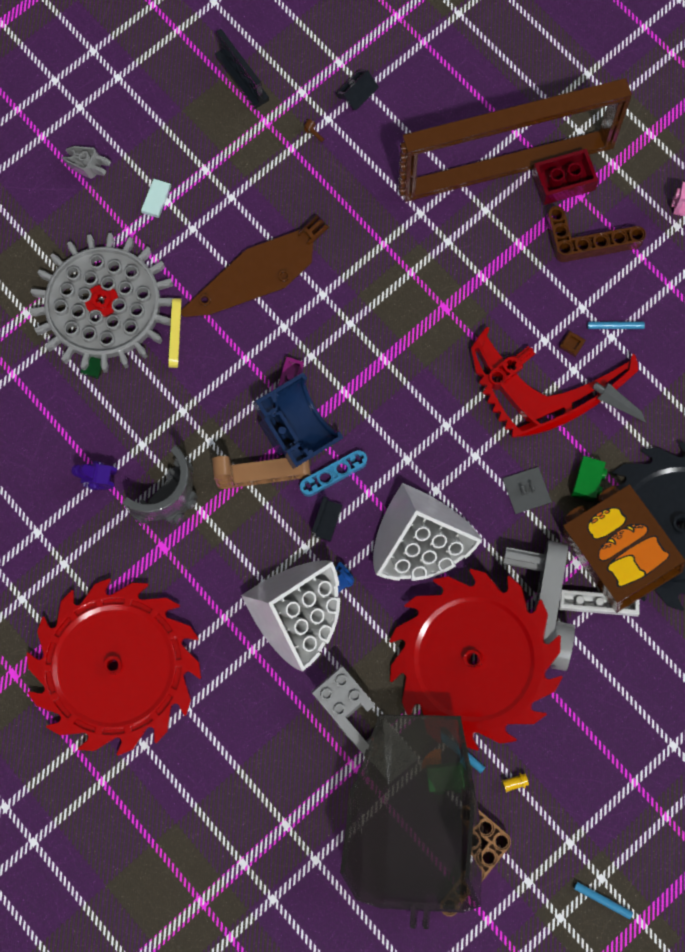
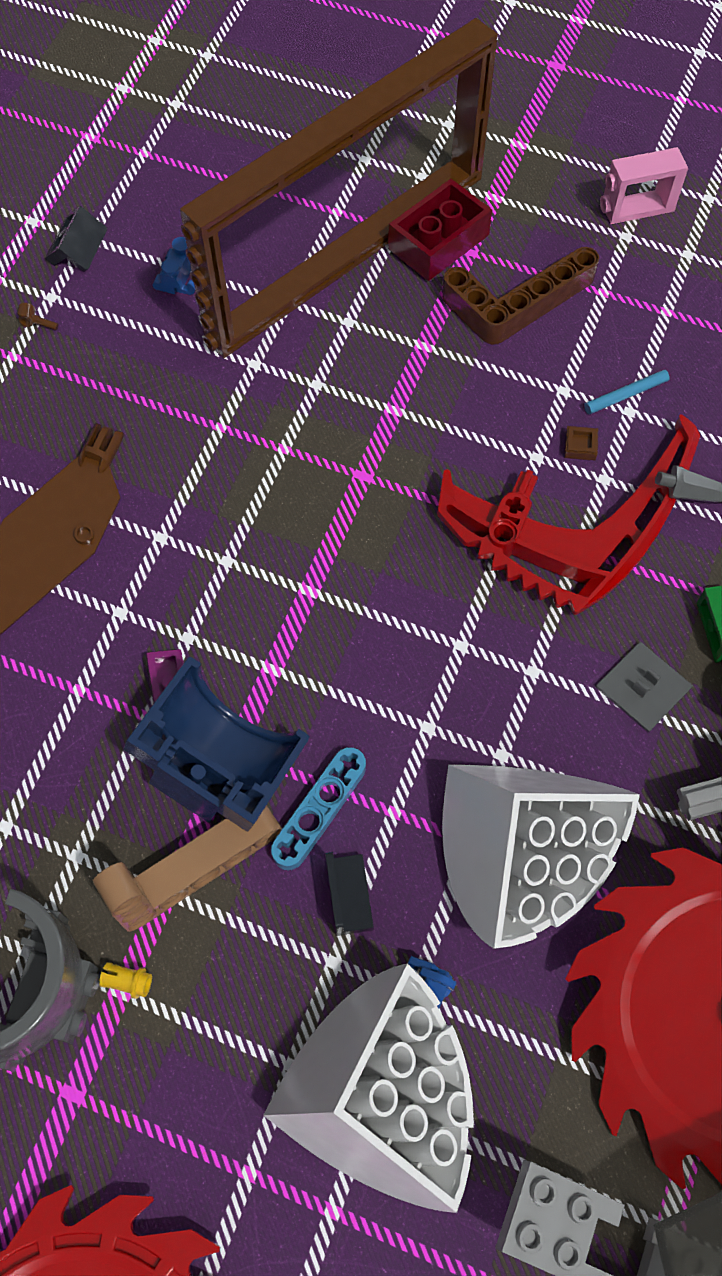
camera: 30 degrees left, 10 degrees down
(211, 512) = (126, 980): none -> yellow pin
(409, 125) = (175, 270): none -> blue piece

